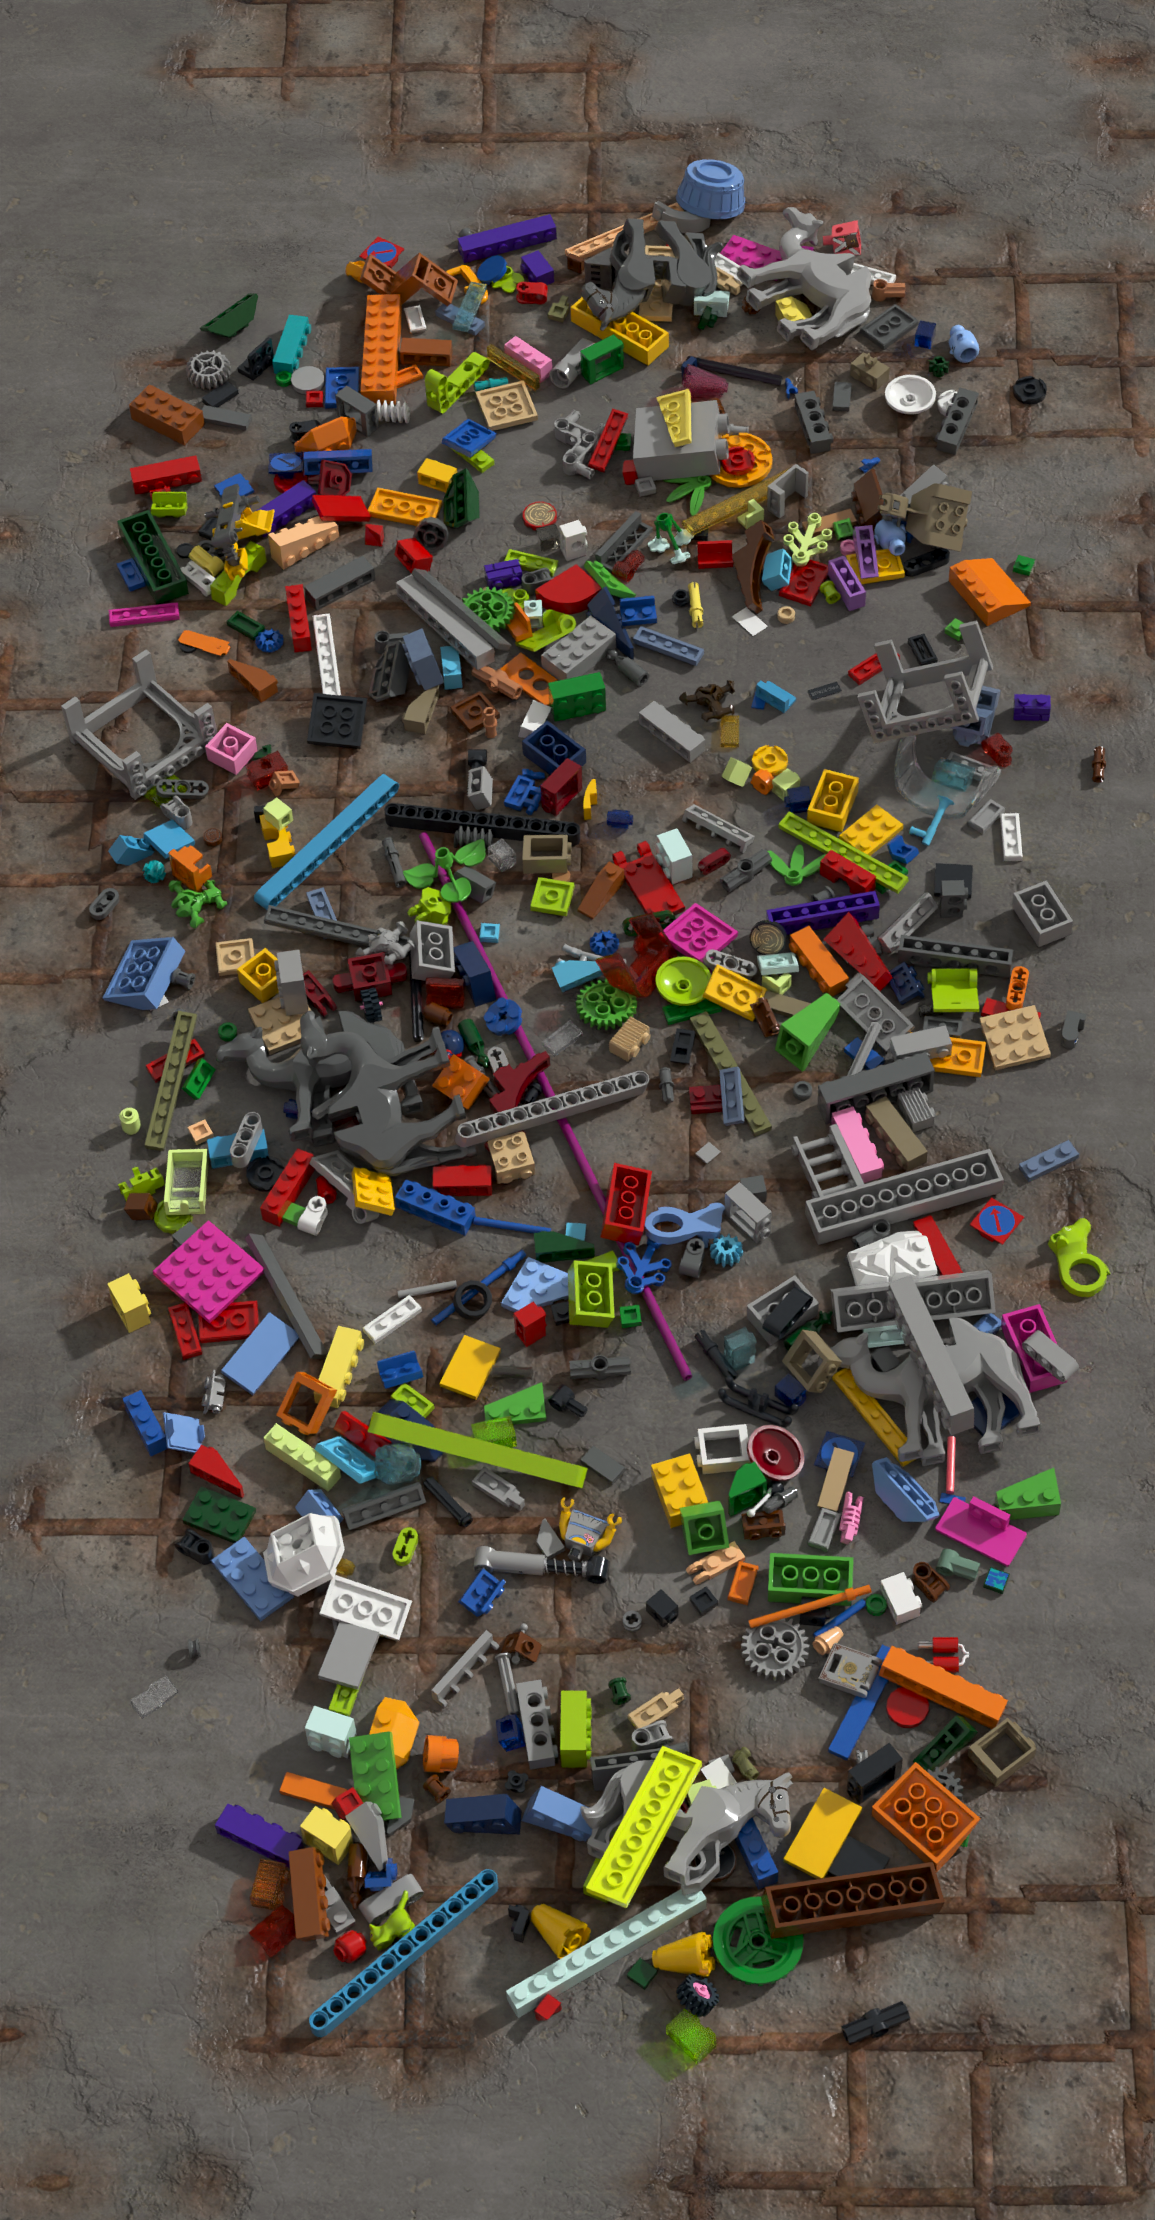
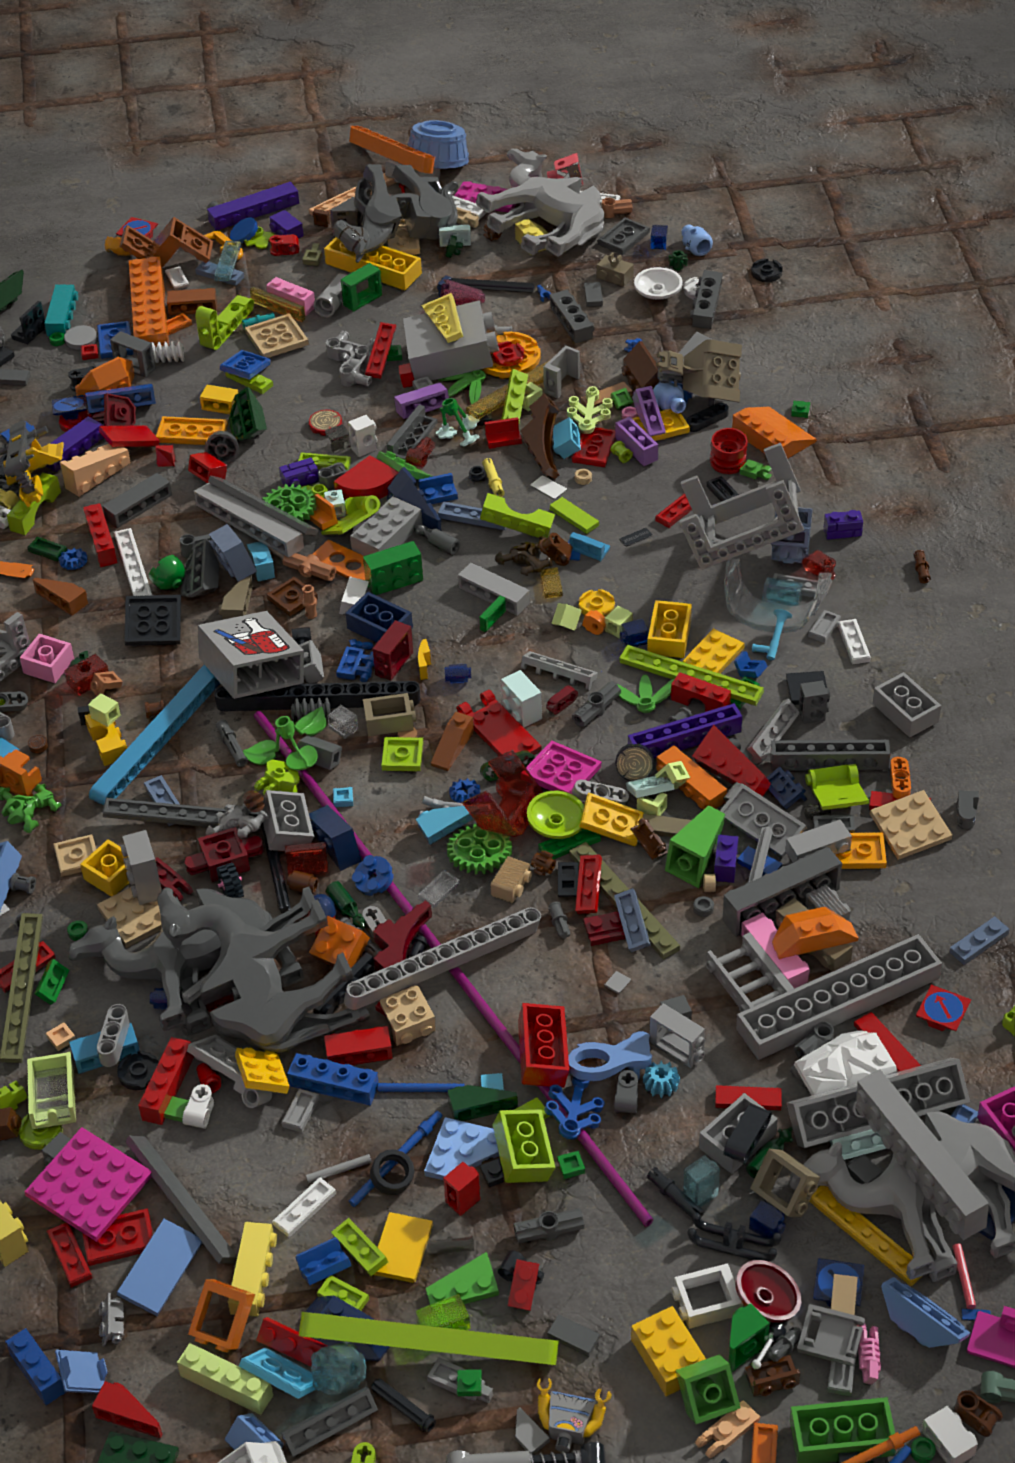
camera: 10 degrees left, 10 degrees down
(326, 816) = (154, 709): none -> reddish brown bush
(359, 672) = (168, 573): none -> green cylinder
(402, 1231) = (300, 1110): none -> light grey tile
(403, 929) = (253, 801): none -> reddish brown arm
(423, 774) = (250, 654): none -> light grey brick
(433, 1362) = (360, 1247): none -> lime plate
(473, 1111) = (360, 969): none -> black plate
(505, 1492) = (469, 1383): none -> green plate
(567, 1415) = (523, 1284): none -> red plate
(645, 502) = (429, 396): none -> medium lavender brick
(662, 1027) = (543, 863): none -> reddish brown gear
(663, 187) = (391, 149): none -> orange beam
(666, 758) = (492, 613): none -> green tile
(699, 1054) = (588, 884): none -> red plate
(727, 665) = (534, 524): none -> lime arch
(734, 514) = (515, 395): none -> lime plate
(743, 696) = (557, 550): none -> reddish brown piece
(768, 658) = (574, 515): none -> lime tile
(803, 956) = (675, 773): none -> yellowish green panel
(812, 1069) = (709, 883): none -> tan piece
(812, 1280) = (766, 1097): none -> red tile
(825, 1499) = (835, 1336): none -> light grey container
(832, 1047) = (726, 858): none -> dark purple brick
(893, 1132) = (811, 932): none -> orange wedge
(936, 607) = (728, 450): none -> red wheel

